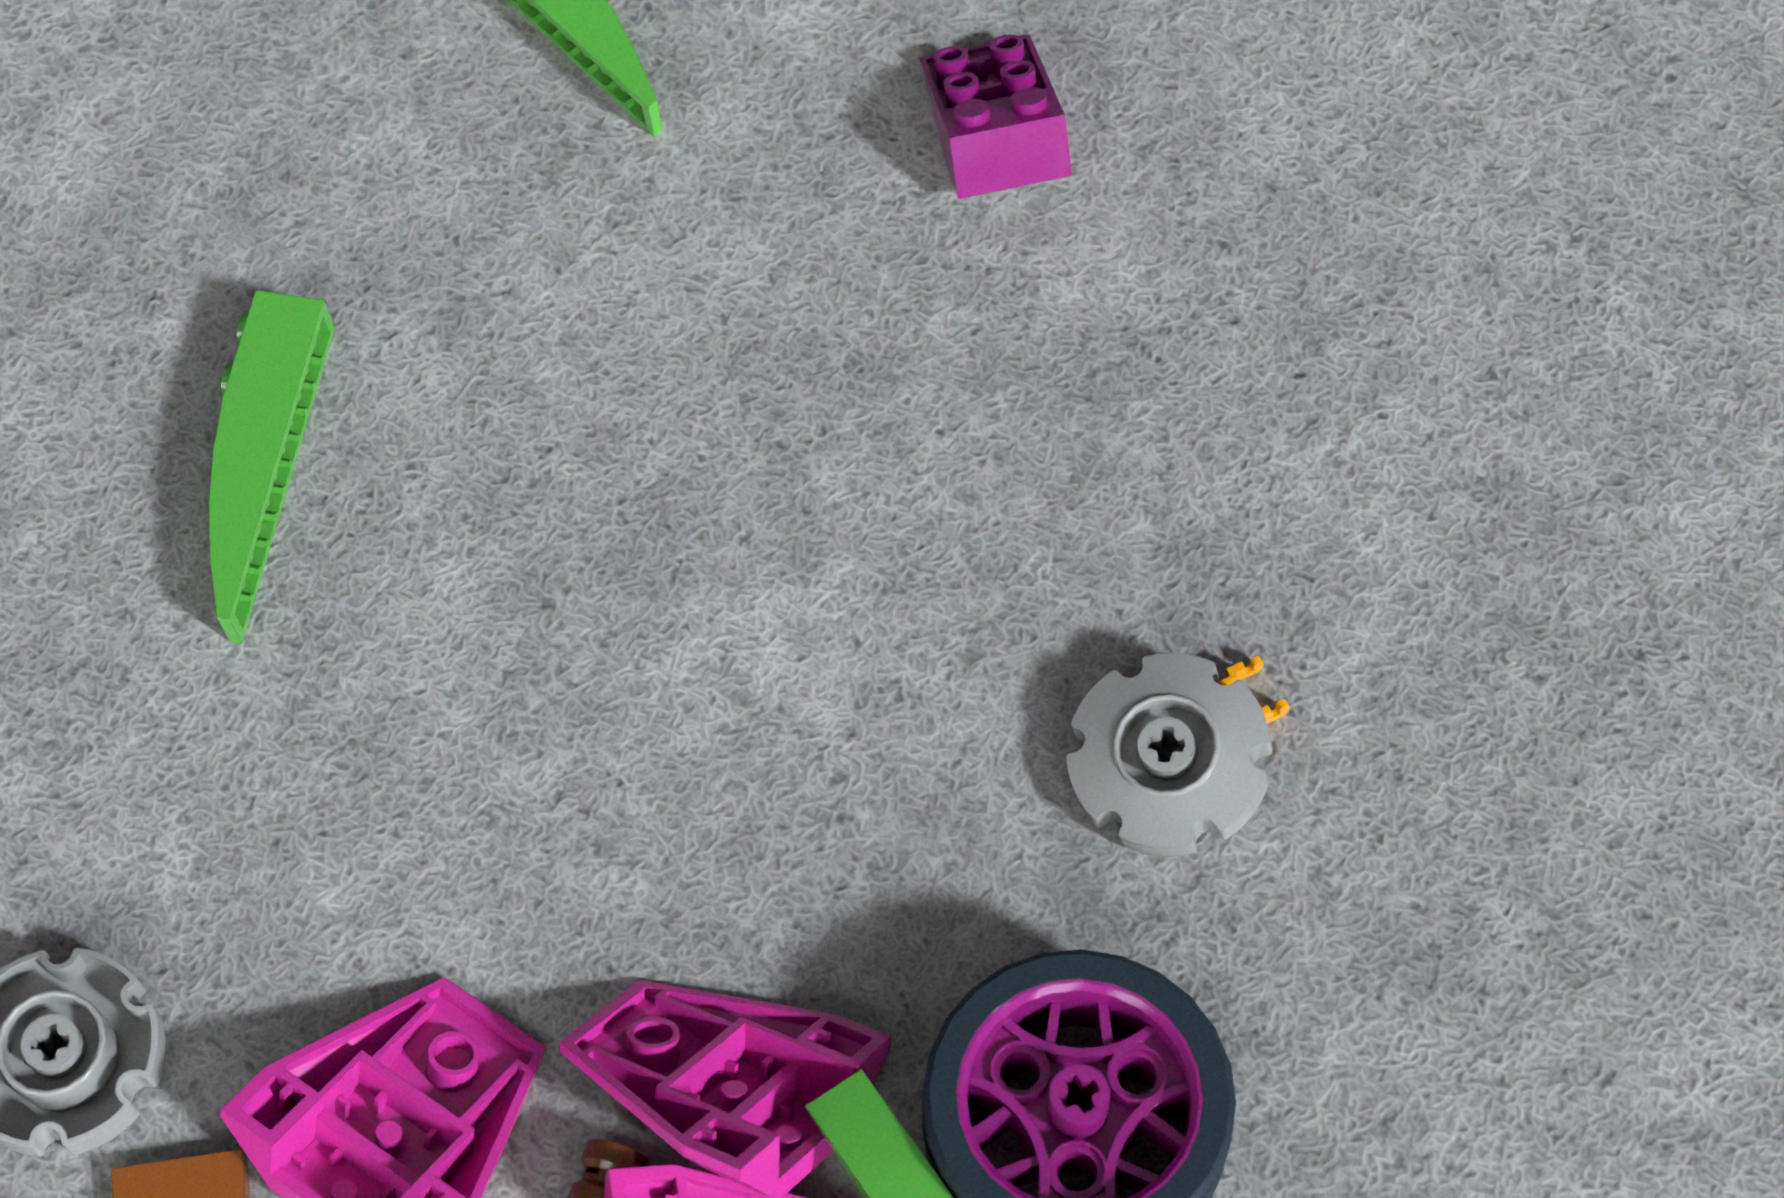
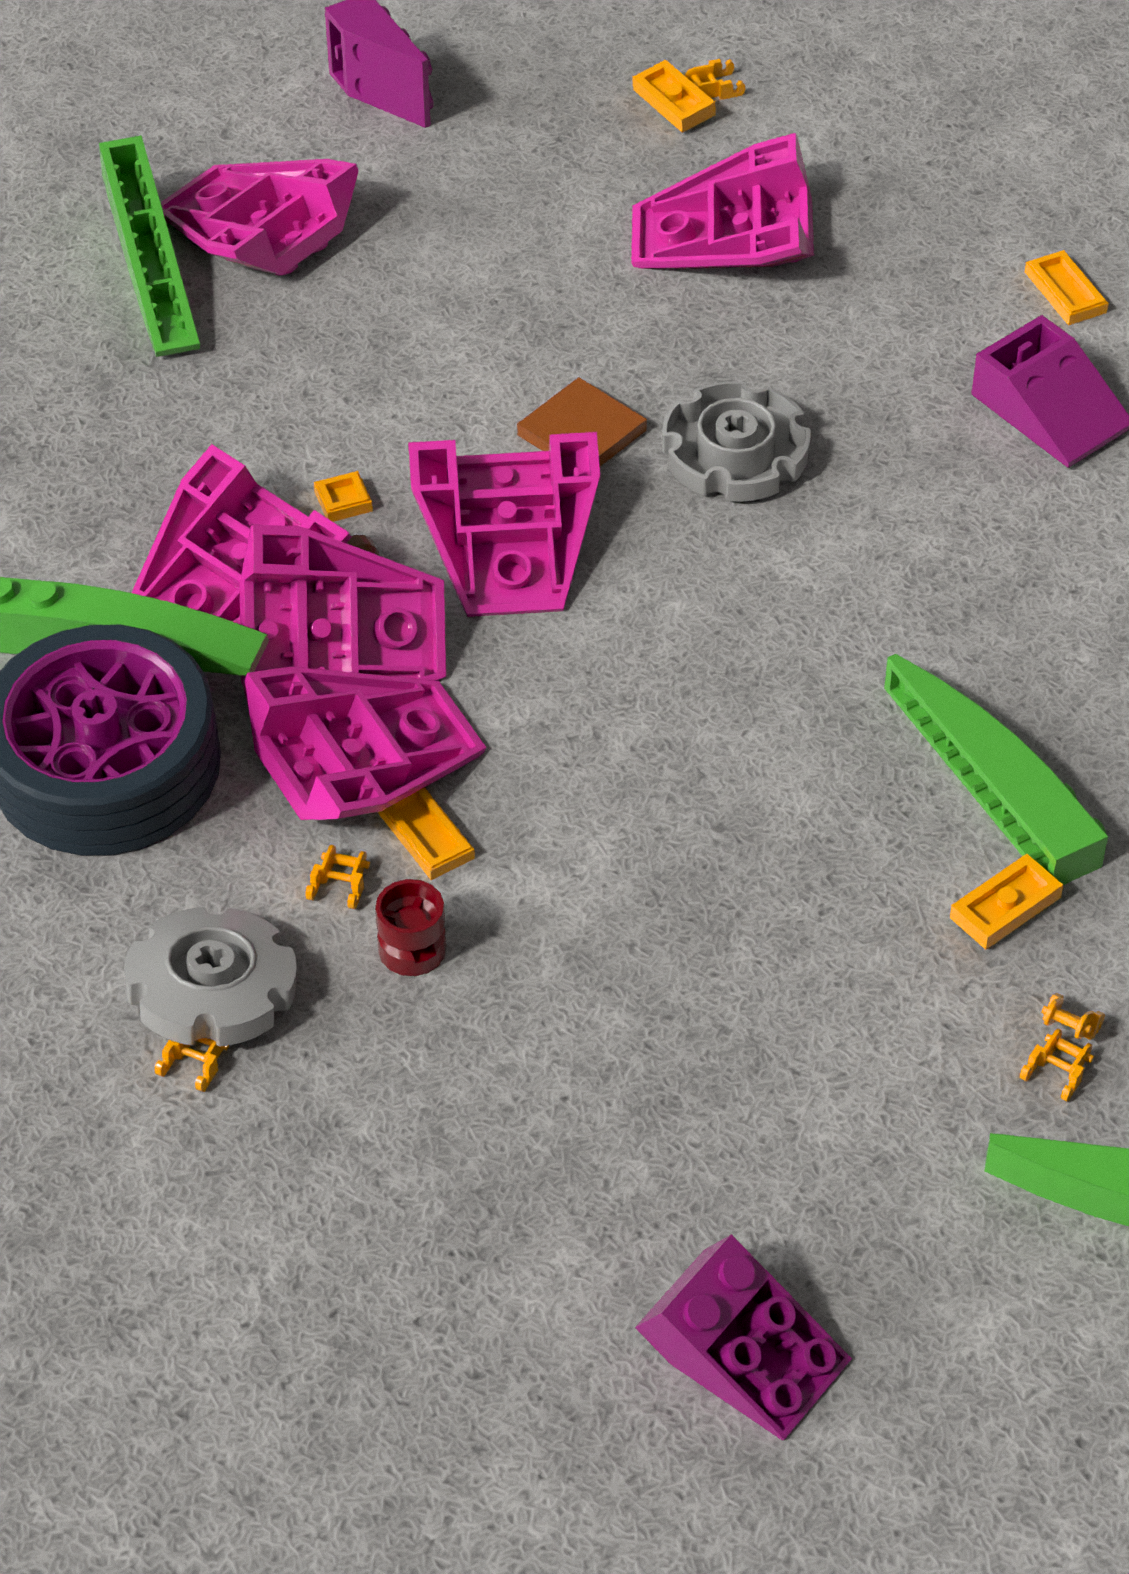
camera: 135 degrees right, 15 degrees down
(391, 326) = (1006, 901): none -> light orange plate
(468, 197) = (1084, 1026): none -> light orange piece
(513, 177) = (1042, 1055): none -> light orange piece
(811, 920) = (354, 739): none -> dark pink wedge
(823, 796) = (428, 834): none -> light orange tile
(942, 829) = (321, 873): none -> light orange piece
(943, 662) = (411, 927): none -> dark red wheel

